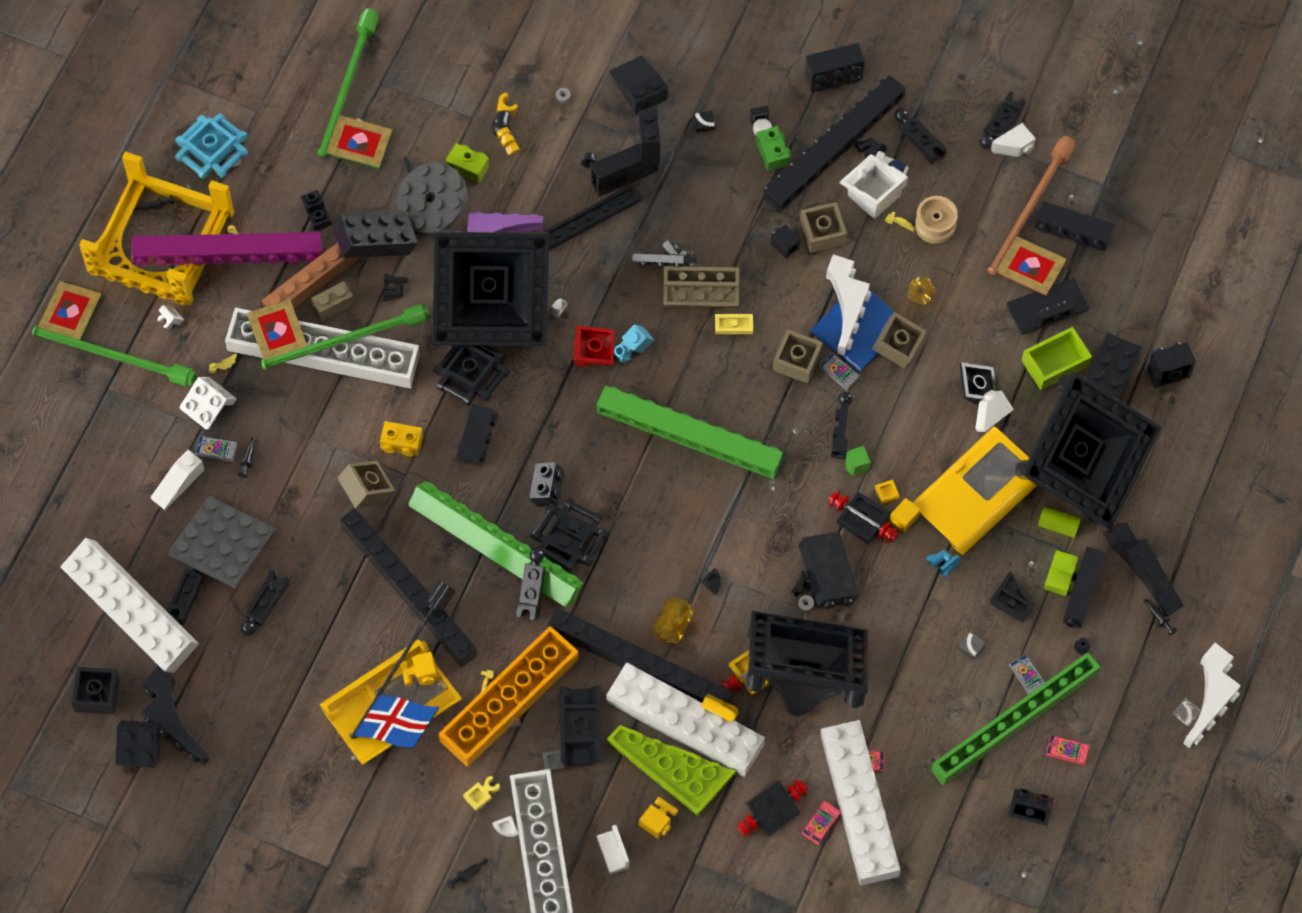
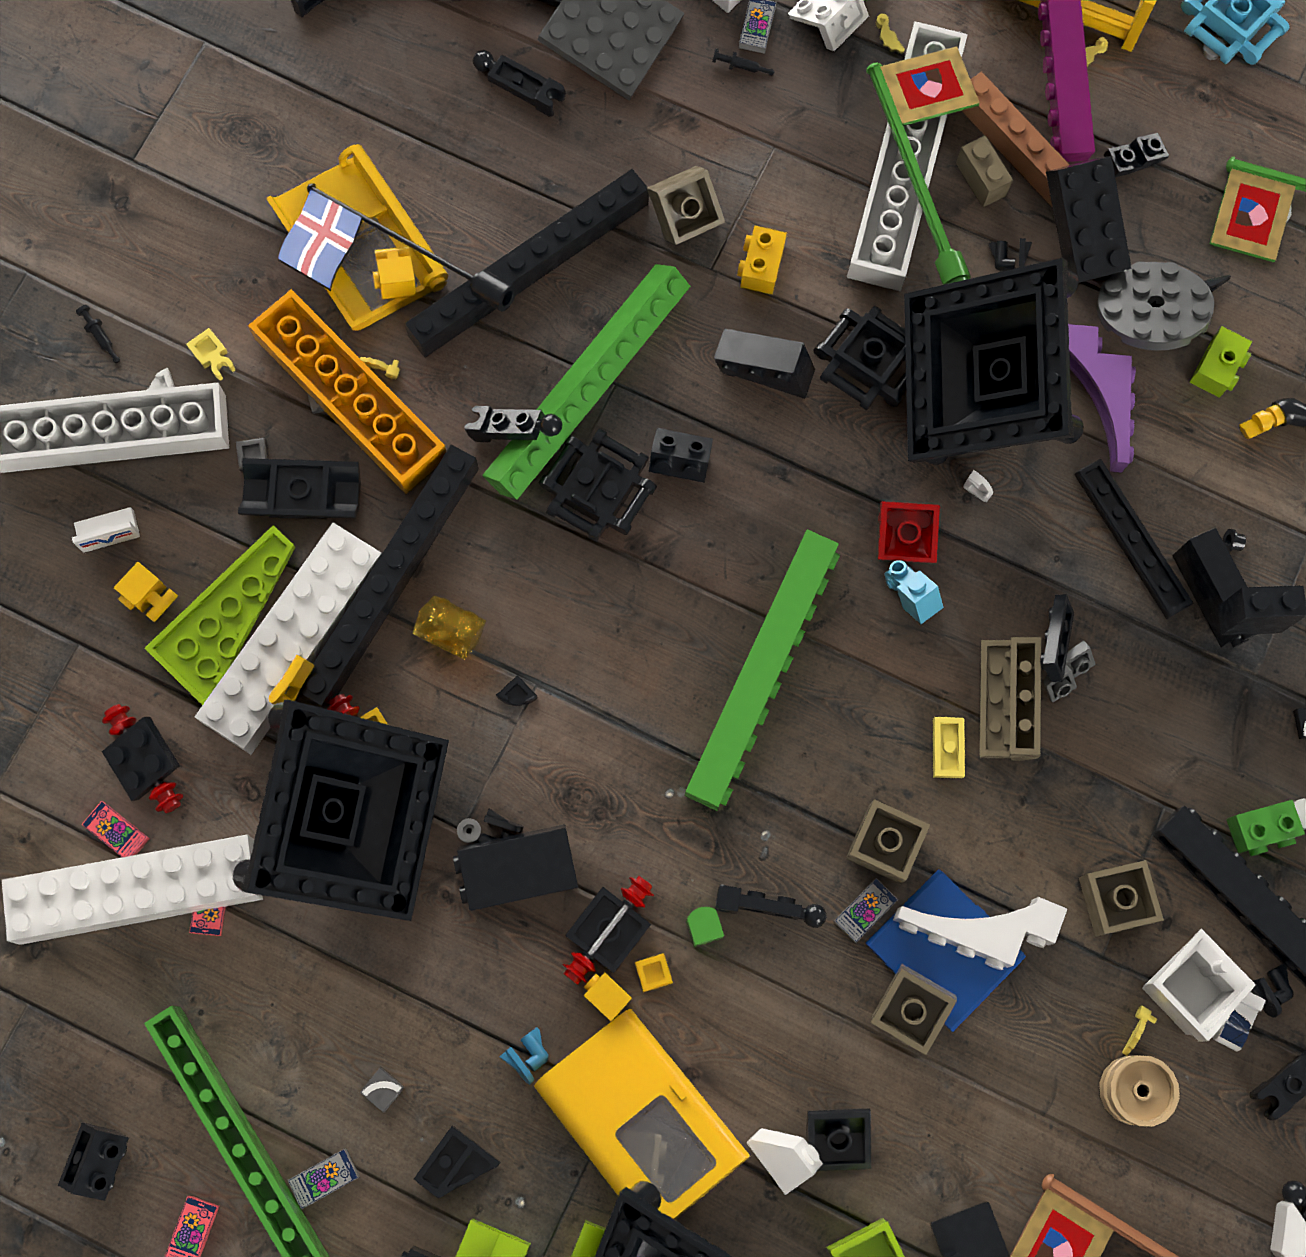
camera: 90 degrees right, 10 degrees up
(785, 241) = (1097, 836): black brick -> none
(924, 284) = (1014, 1062): clear yellow brick -> none

